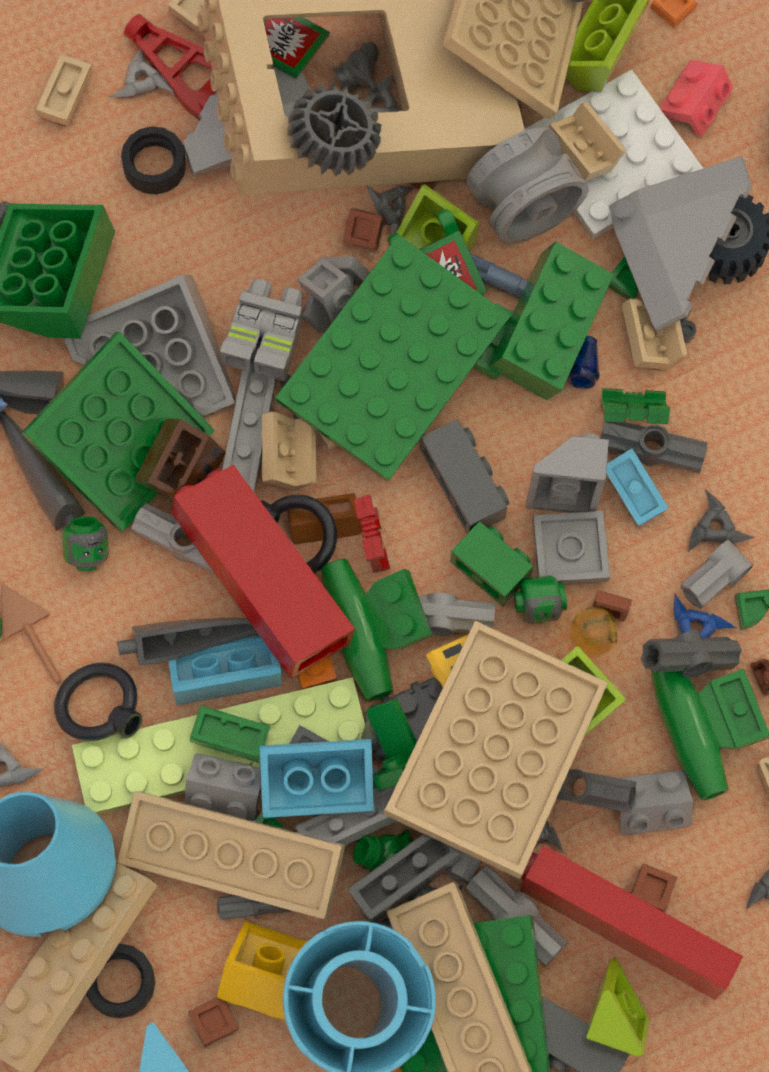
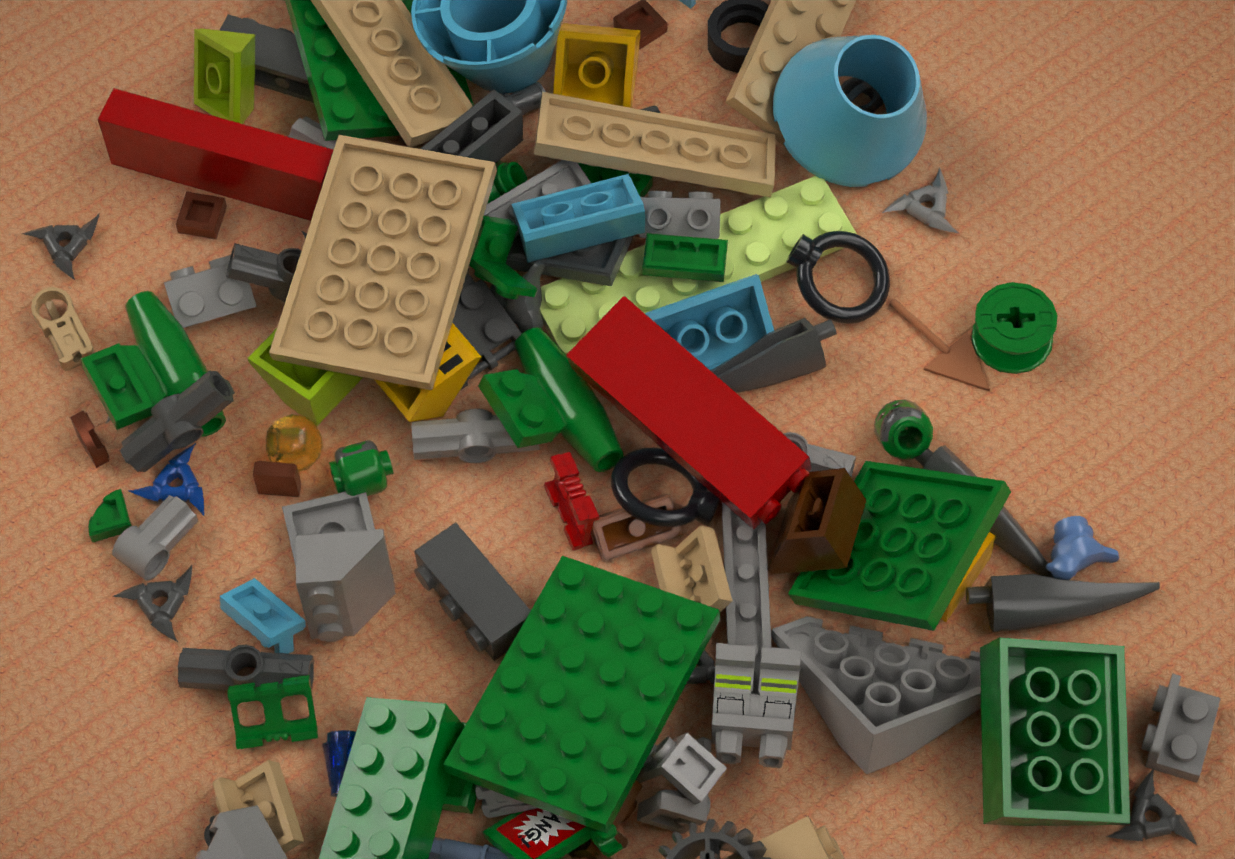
camera: 175 degrees right, 10 degrees down
(491, 562) = (423, 497): green brick -> none

